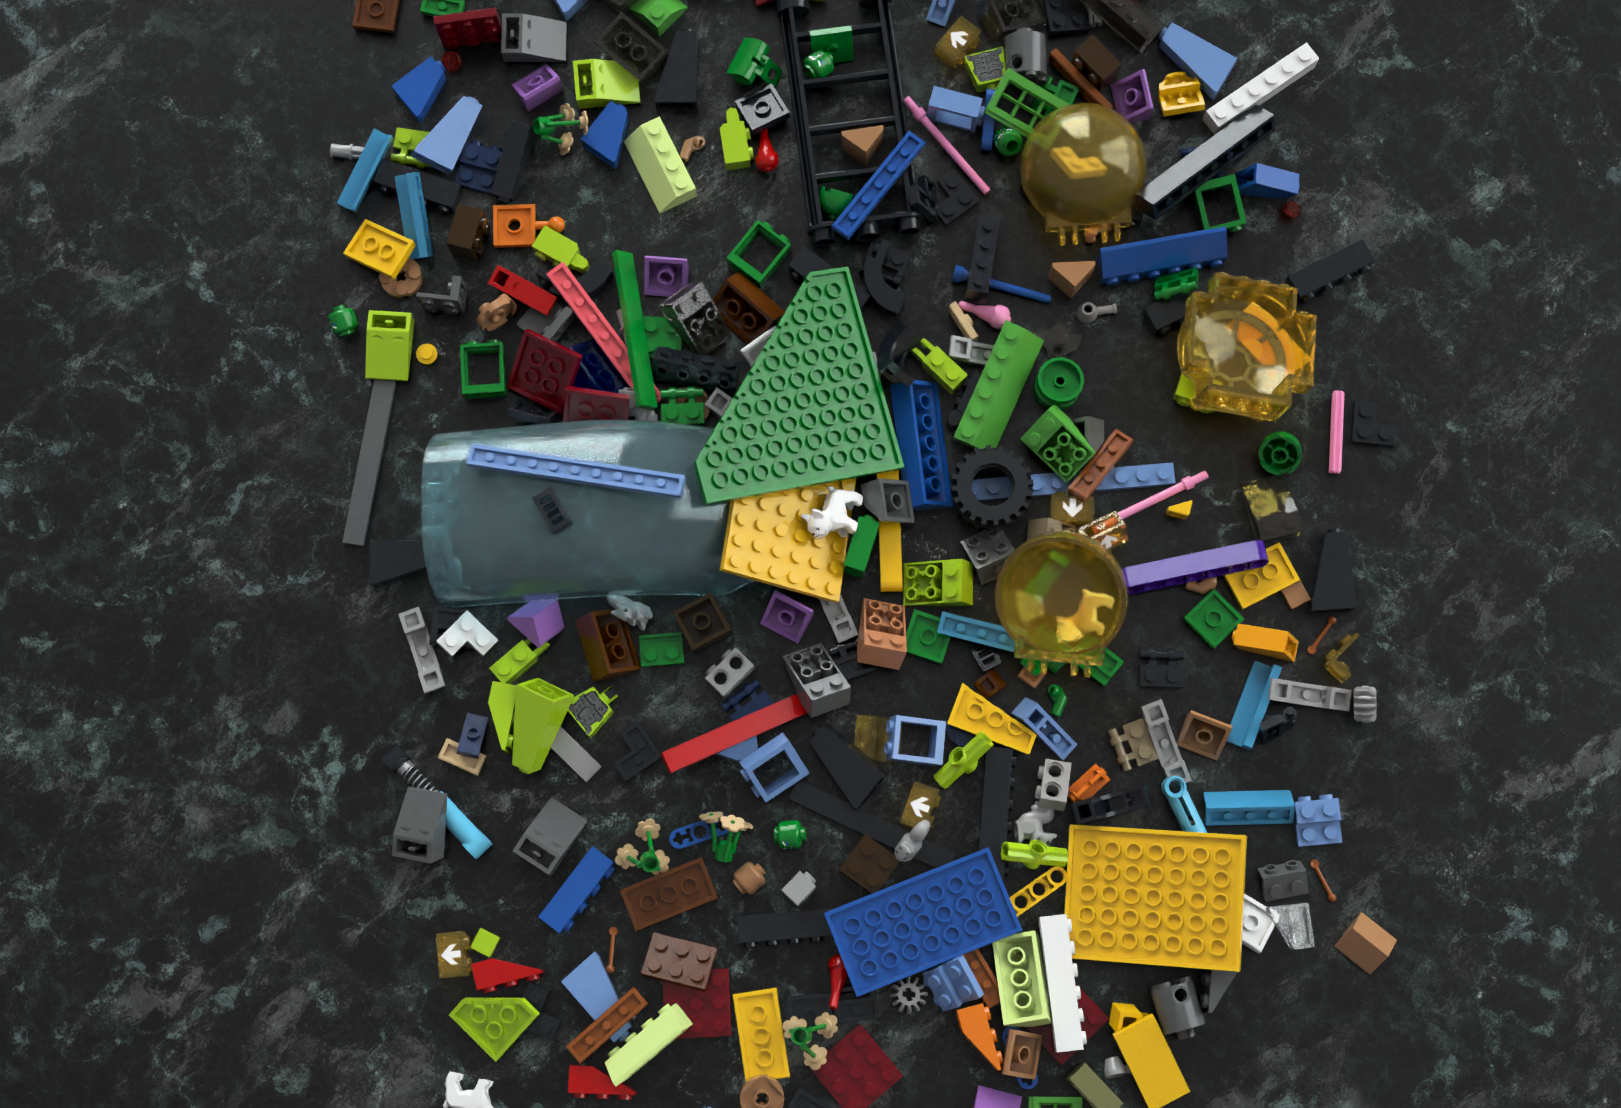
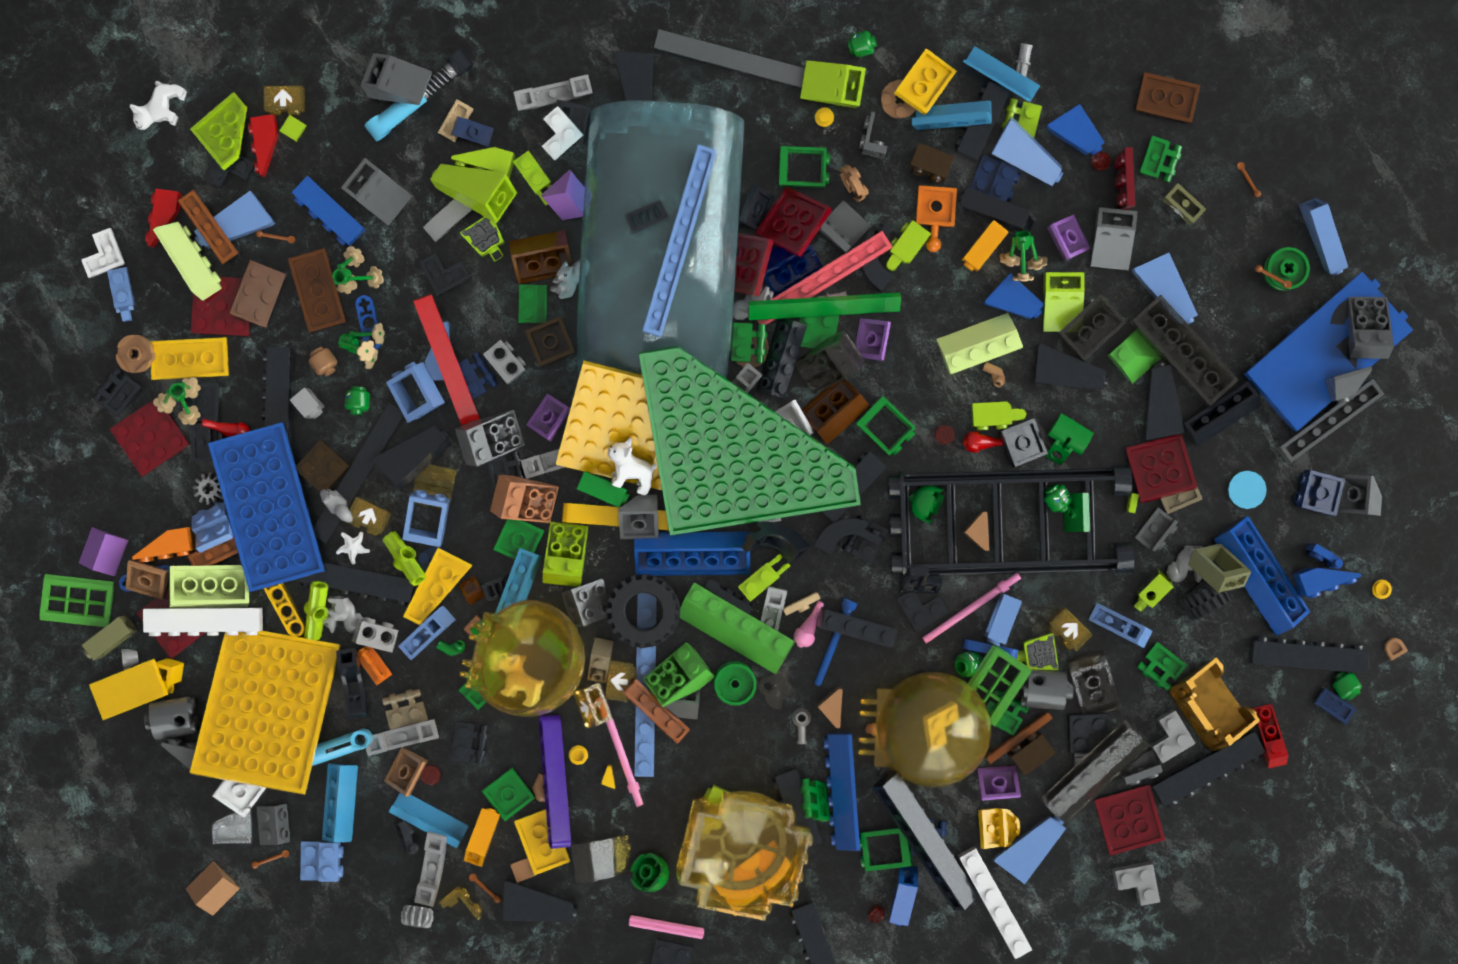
camera: 90 degrees right, 10 degrees up
(522, 290) = (872, 208): red slope -> none
(552, 168) = (984, 246): none -> light orange slope
(762, 192) = (944, 434): none -> clear red plate
(878, 185) = (933, 540): blue tile -> none
(956, 822) = (352, 546): none -> white animal
(1159, 547) = (578, 755): none -> yellow plate
(1204, 706) = (430, 775): none -> clear red plate

